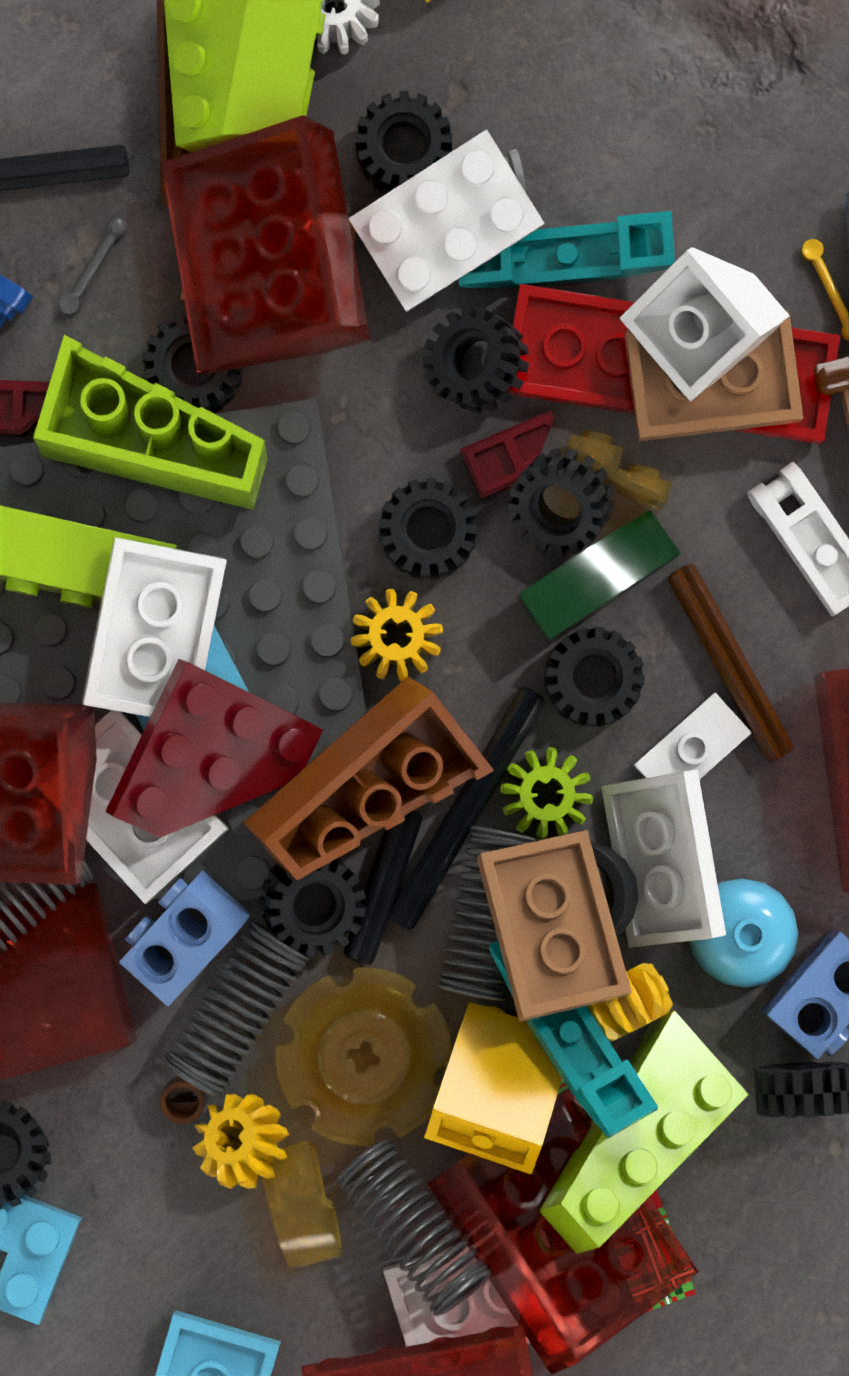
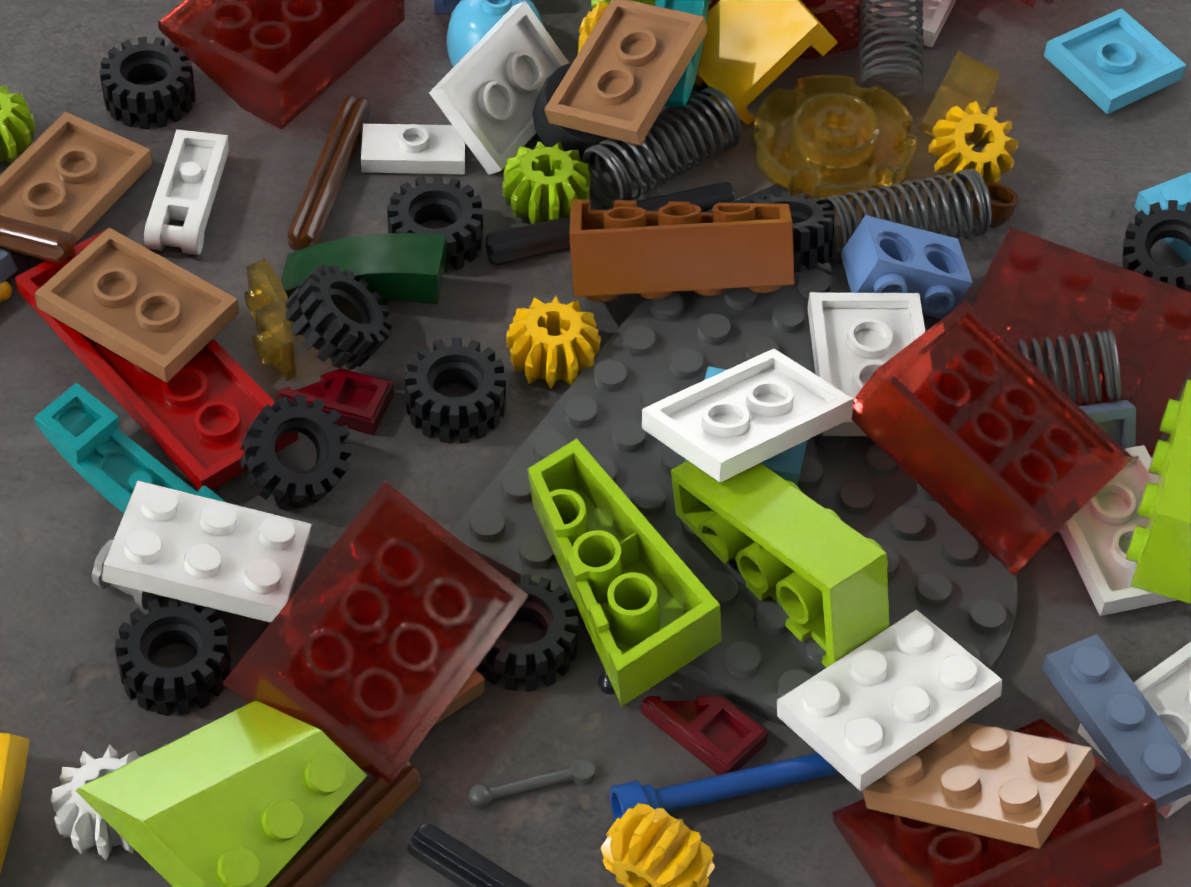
camera: 145 degrees left, 35 degrees down
(208, 753) = (781, 326): dark red plate -> none
(703, 319) = (108, 299): white slope -> none

